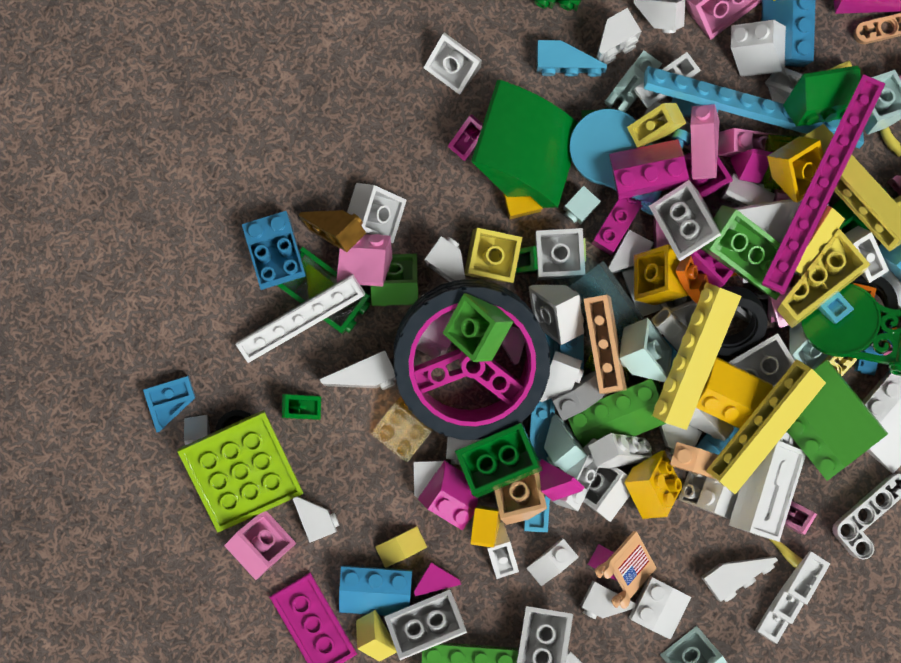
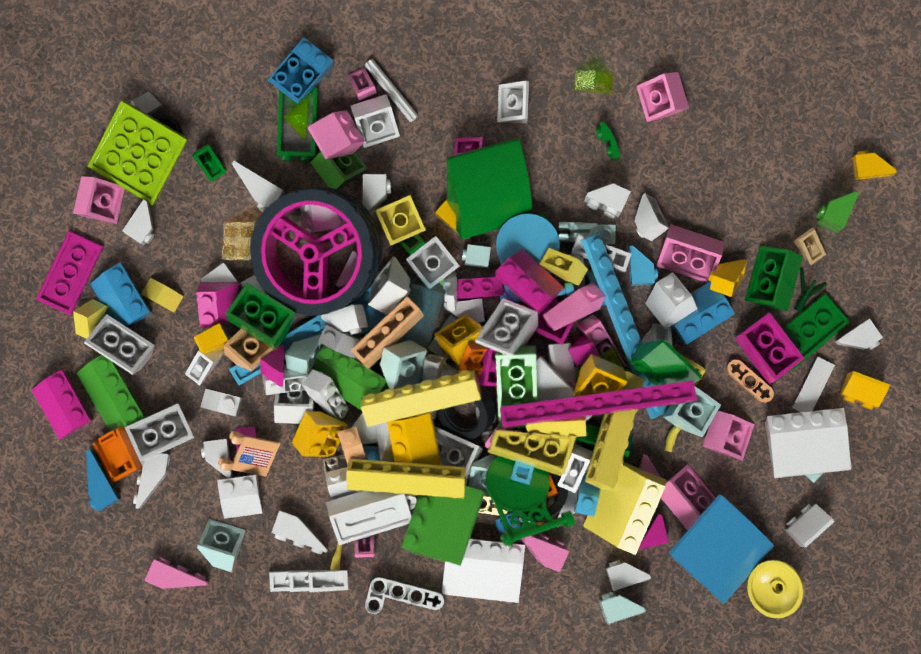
camera: 55 degrees right, 0 degrees up
(168, 400) = (153, 72): dark azure wing -> none
(300, 318) = (267, 120): white tile -> none
(327, 199) = (362, 84): none -> bright pink slope
(335, 227) = (344, 100): pearl gold slope -> none
(354, 176) = (391, 90): none -> white axle
(435, 579) = (156, 332): dark pink slope -> none
(477, 328) = (335, 238): bright green slope -> none
(560, 57) = (569, 171): medium azure slope -> none
(598, 251) = (451, 294): none -> white slope
(706, 53) = (641, 269): none -> medium azure slope

